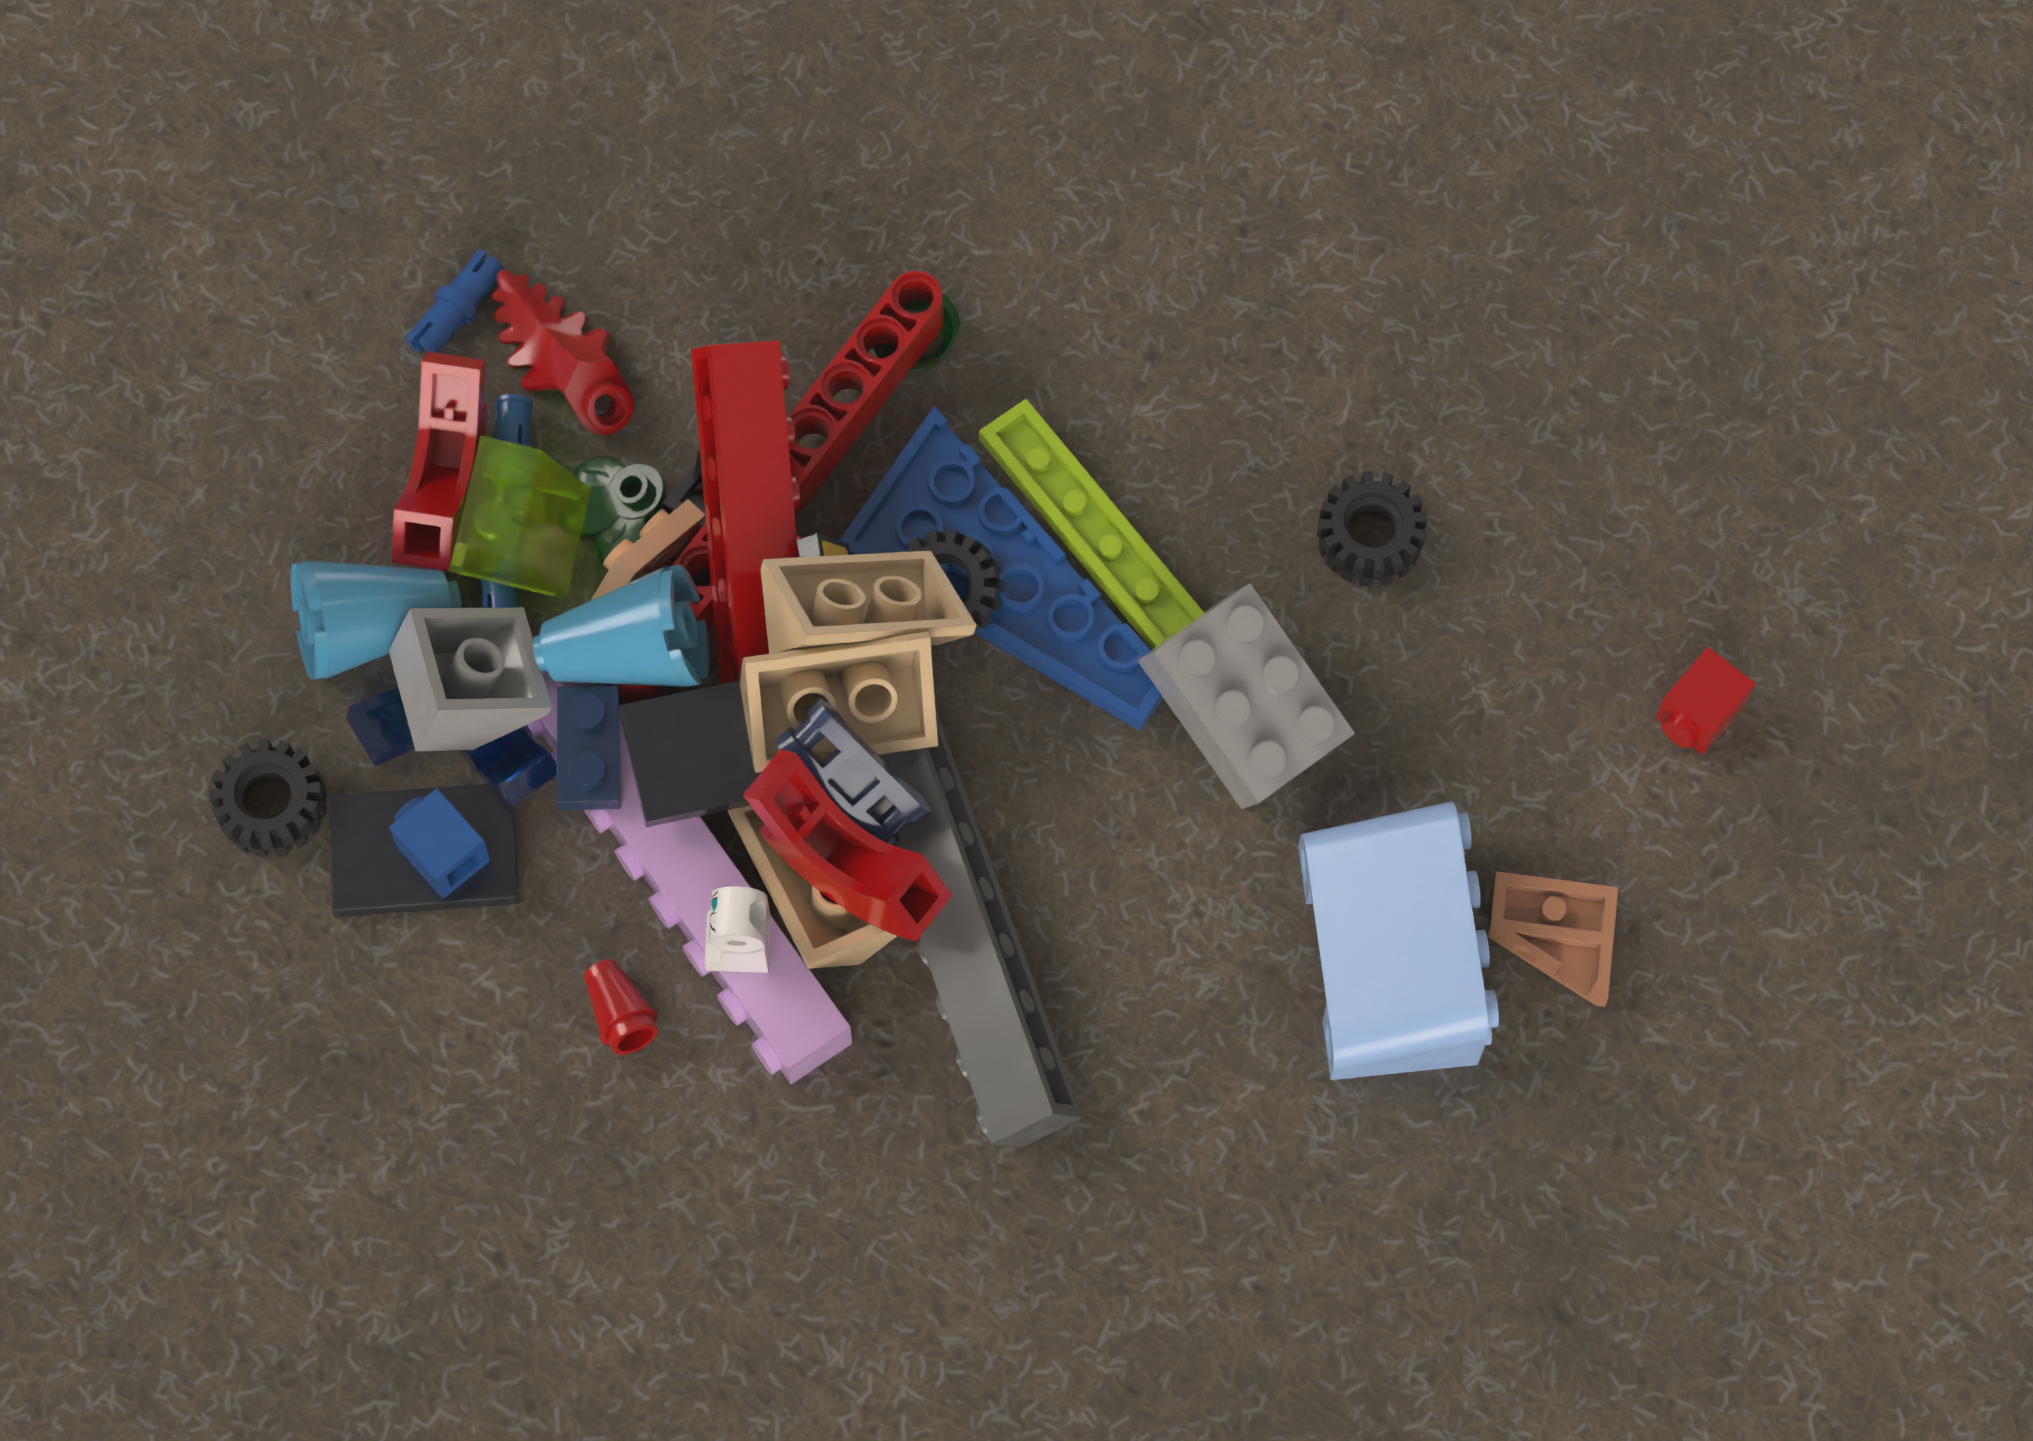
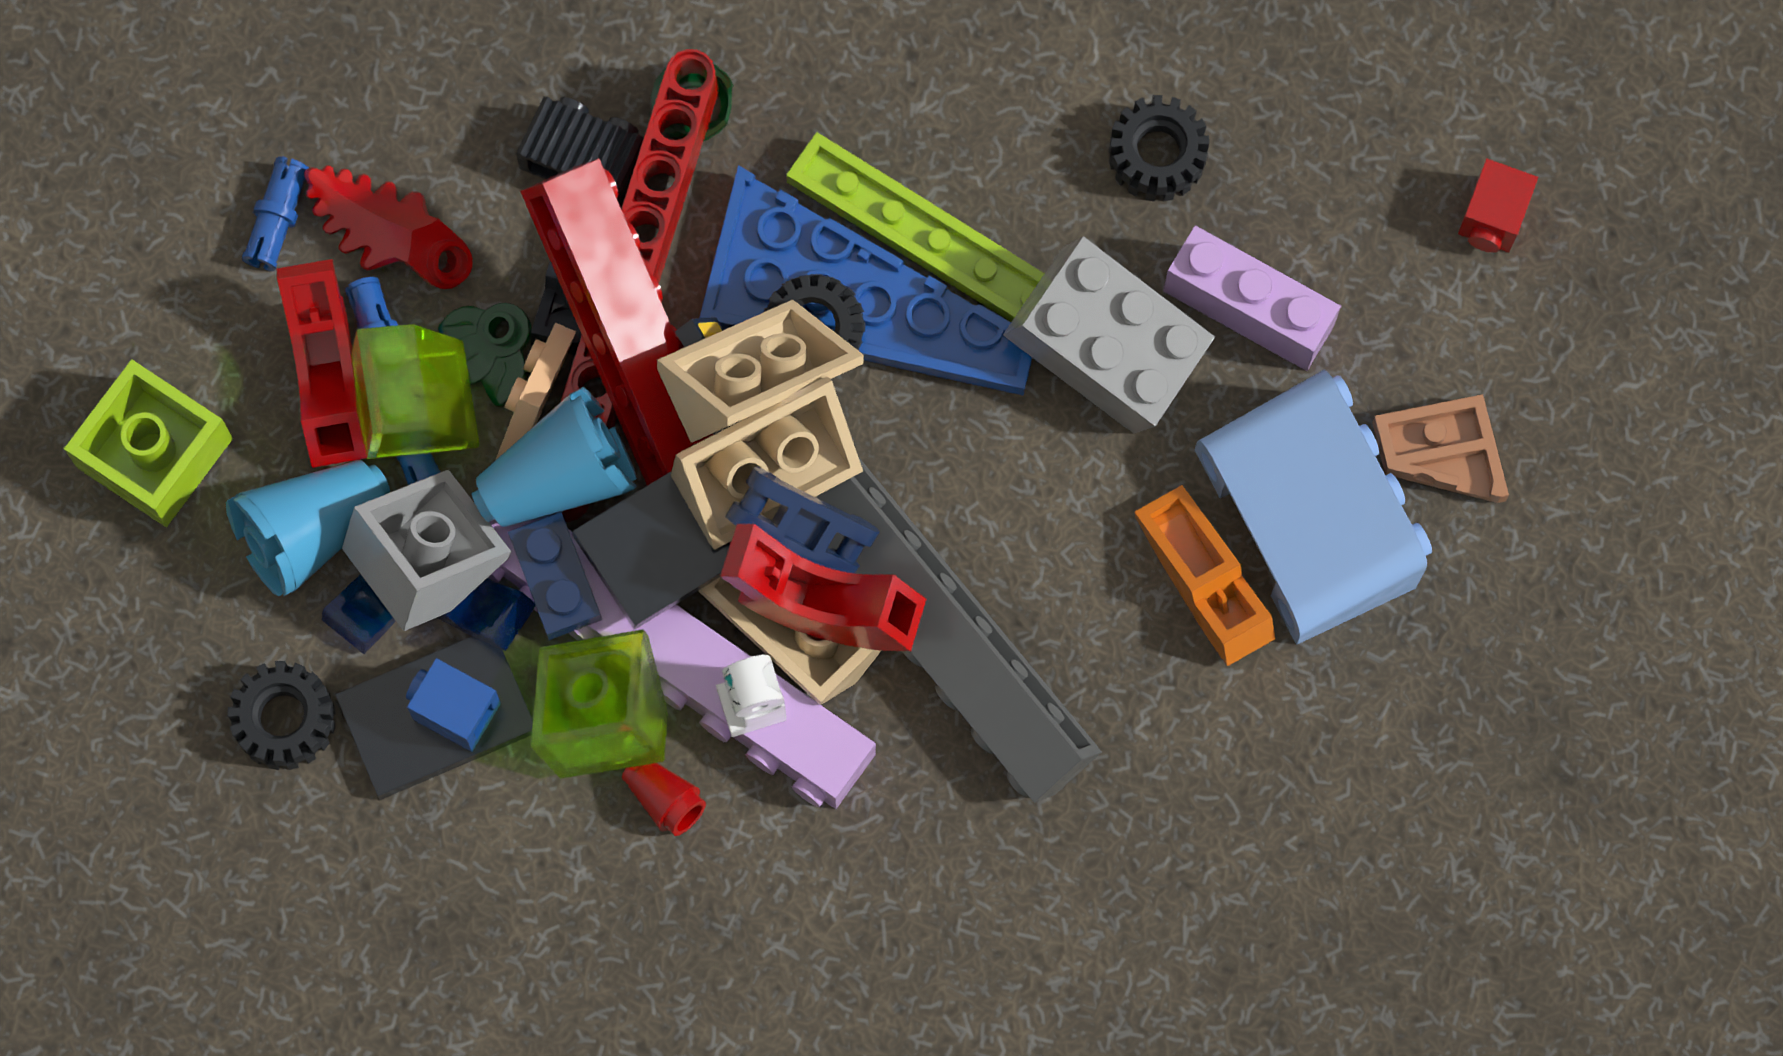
camera: 20 degrees left, 5 degrees up
(240, 485) = (148, 443): none -> lime brick
(584, 894) = (599, 705): none -> clear neon green slope
(775, 314) = (568, 136): none -> black brick
(1260, 976) = (1206, 575): none -> orange slope
(1410, 709) = (1251, 298): none -> lavender brick

